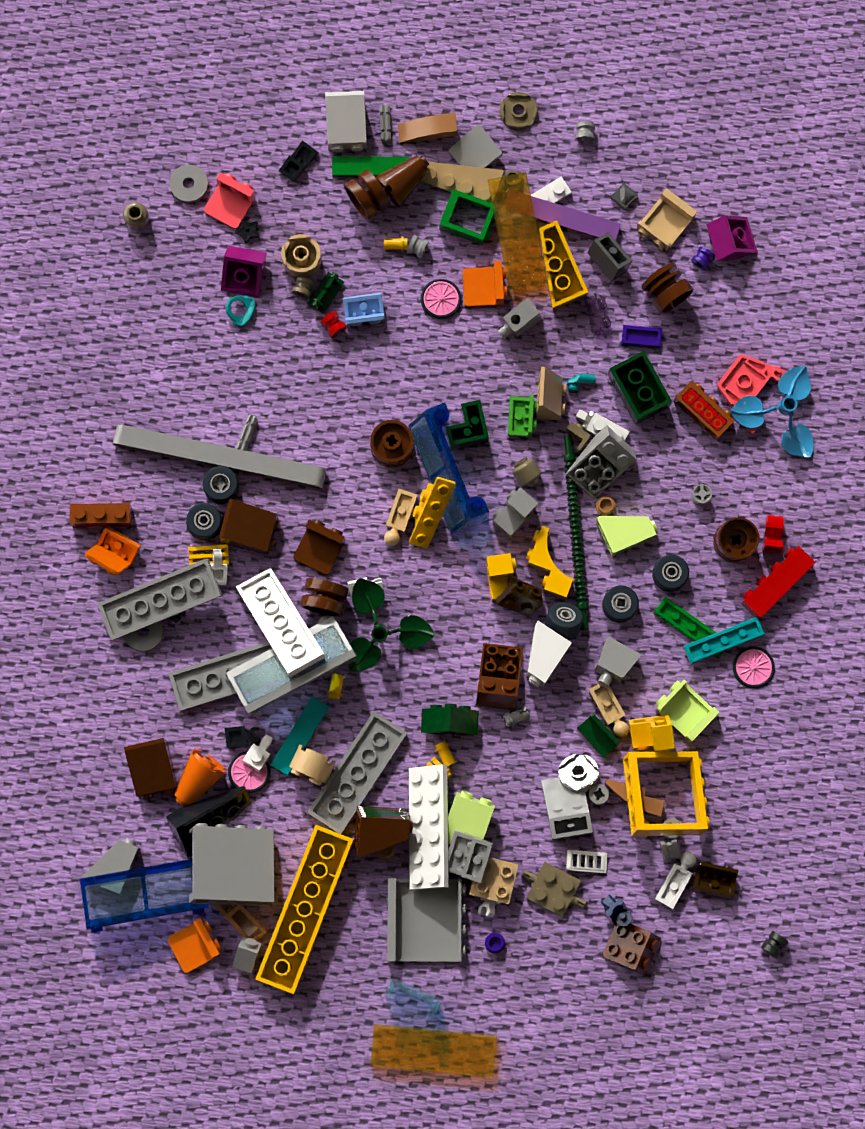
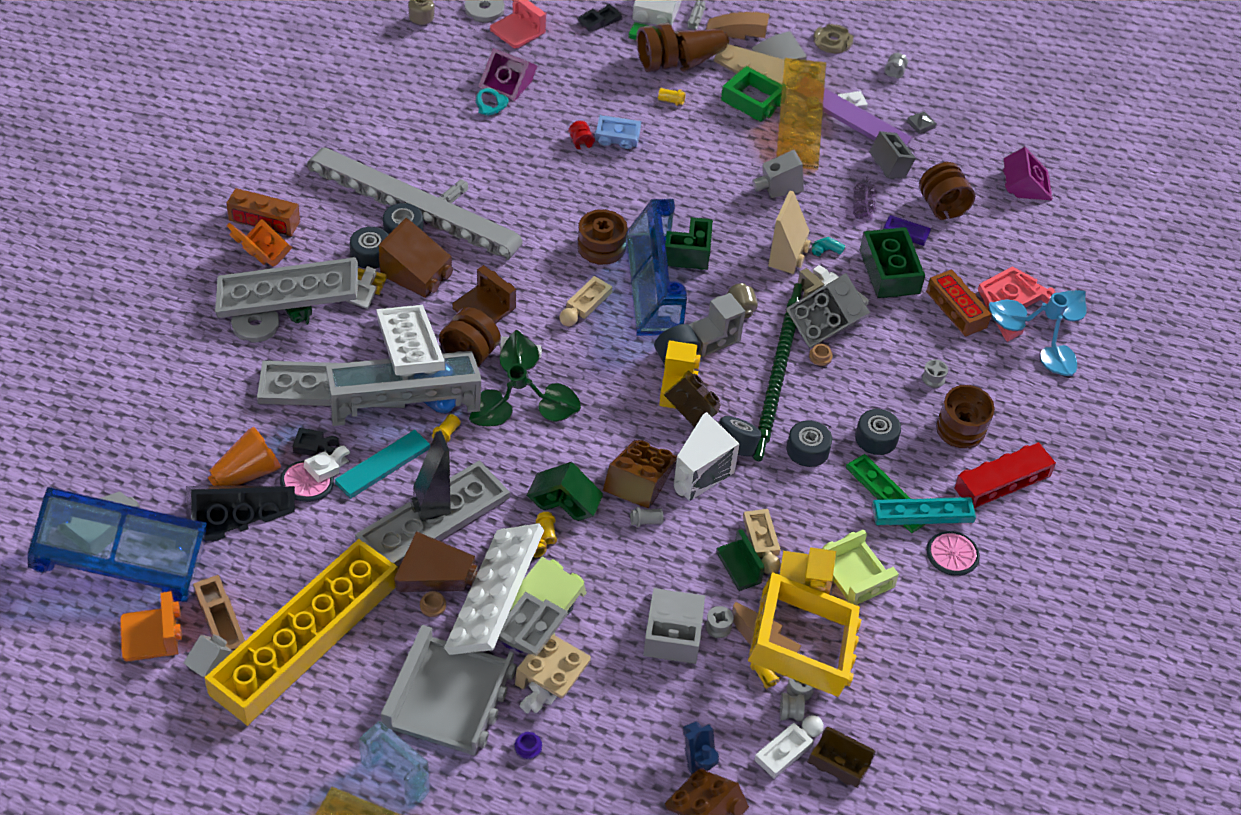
camera: 15 degrees right, 30 degrees down
(151, 768) = (195, 433): reddish brown slope -> none
(232, 865) = (236, 550): light grey panel -> none
(247, 235) = (521, 50): black plate -> none
(291, 252) = (571, 76): tan brick -> none
(303, 287) = (563, 101): dark tan wheel -> none
(311, 764) = (383, 485): tan brick -> none
(326, 292) = (585, 112): dark green hinge -> none
(351, 761) = (432, 484): none -> black wedge
(417, 246) = (693, 102): light grey wheel -> none
(430, 510) = (622, 295): yellow bracket -> none
(441, 298) = (701, 148): bright pink wheel -> none
(484, 285) = (751, 148): orange bracket -> none
(490, 542) = (678, 333): none -> black wheel
(521, 416) = (752, 256): bright green bracket -> none
(539, 558) = (728, 377): yellow arch -> none
(553, 889) = (627, 708): dark tan plate -> none
(561, 269) = (838, 152): yellow wedge -> none
(569, 861) = (666, 693): white slope -> none
(582, 782) = (702, 591): tile -> none
(615, 662) = (786, 494): light grey torso -> none
(625, 531) = (837, 381): yellowish green slope -> none
(666, 220) = (964, 147): tan panel -> none
(703, 258) = (992, 184): dark purple wheel -> none
(773, 533) = (1009, 431): red leg -> none

